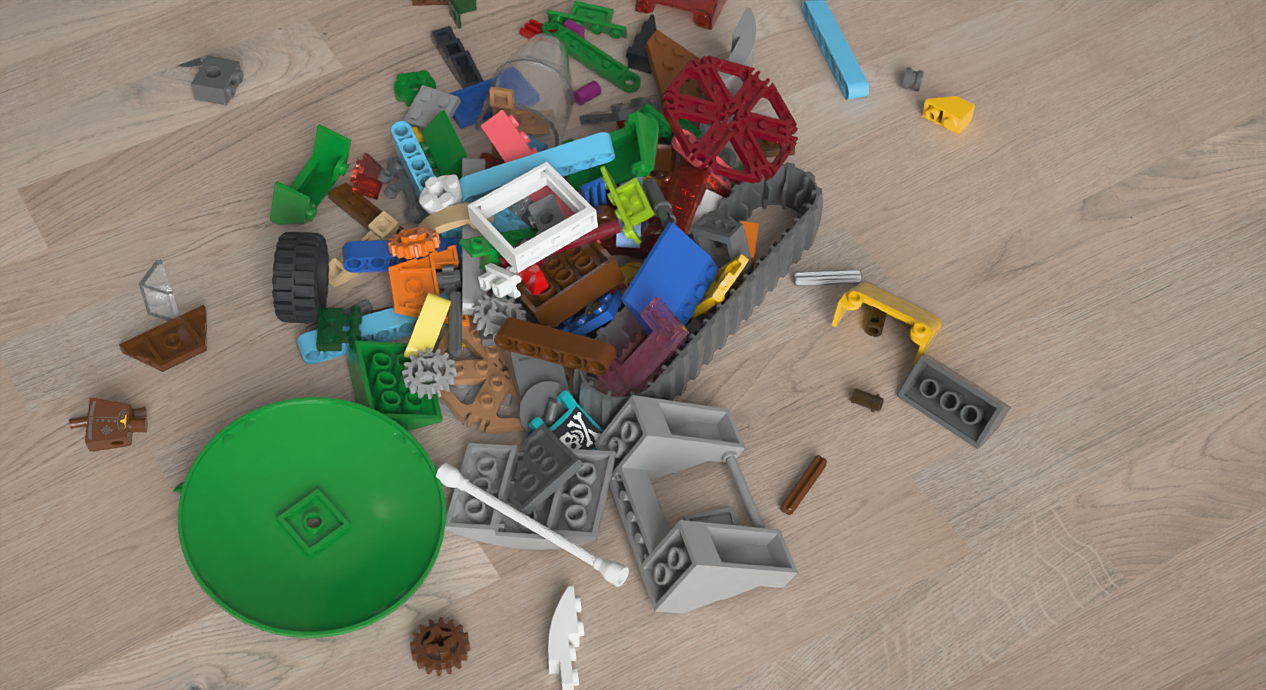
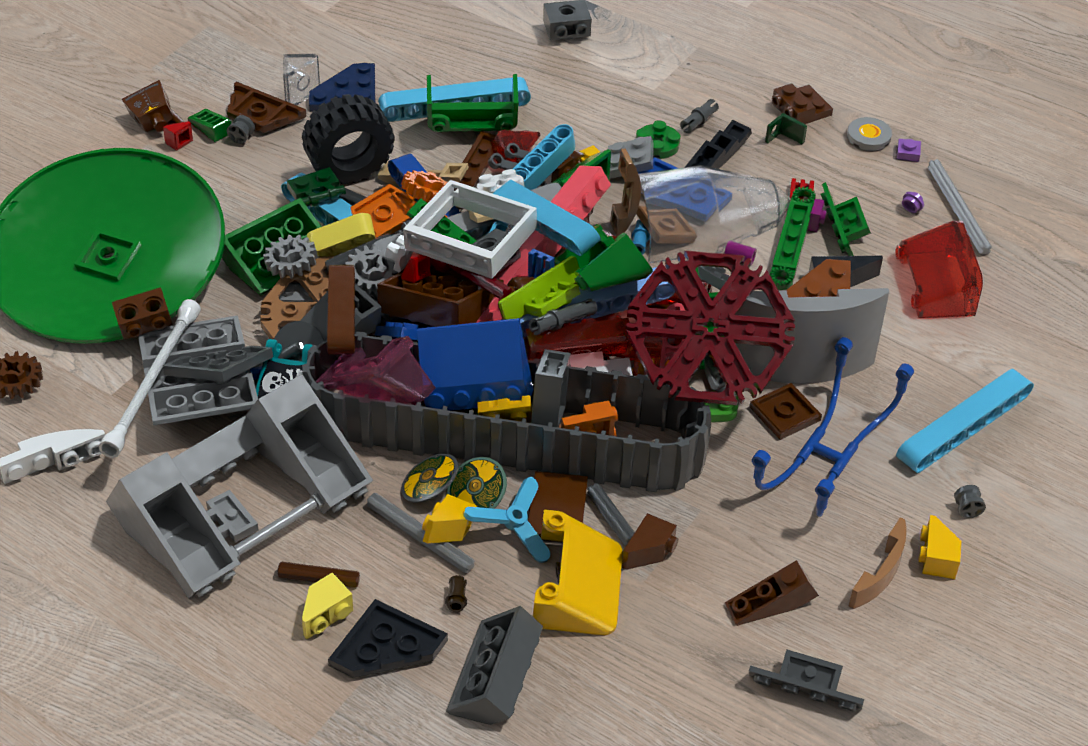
camera: 65 degrees right, 5 degrees down
(165, 417) = (178, 134): none -> red slope
(173, 378) = (210, 124): none -> green slope
(190, 268) = (355, 79): none -> dark blue plate
(194, 364) = (240, 129): none -> dark grey wheel
(256, 212) = (413, 102): none -> medium azure beam
(404, 51) = (699, 115): none -> dark grey pin
(437, 508) = (142, 313): none -> reddish brown brick
(739, 373) = (429, 478): none -> shield
(764, 346) = (479, 482): none -> shield
(788, 402) = (414, 529): none -> light grey axle
(795, 374) = (447, 521): none -> yellow slope
(801, 307) = (558, 493): none -> reddish brown tile
(814, 333) = (515, 519): none -> medium azure piece
(844, 490) = (325, 604): none -> light yellow slope
(853, 155) = (826, 486): none -> blue bar
(871, 261) = (650, 543): none -> reddish brown slope
(897, 462) = (386, 641): none -> black plate
(935, 131) = (871, 586): none -> medium nougat slope
(953, 216) = (773, 595): none -> reddish brown slope
(1034, 226) = (810, 676): none -> dark grey bracket

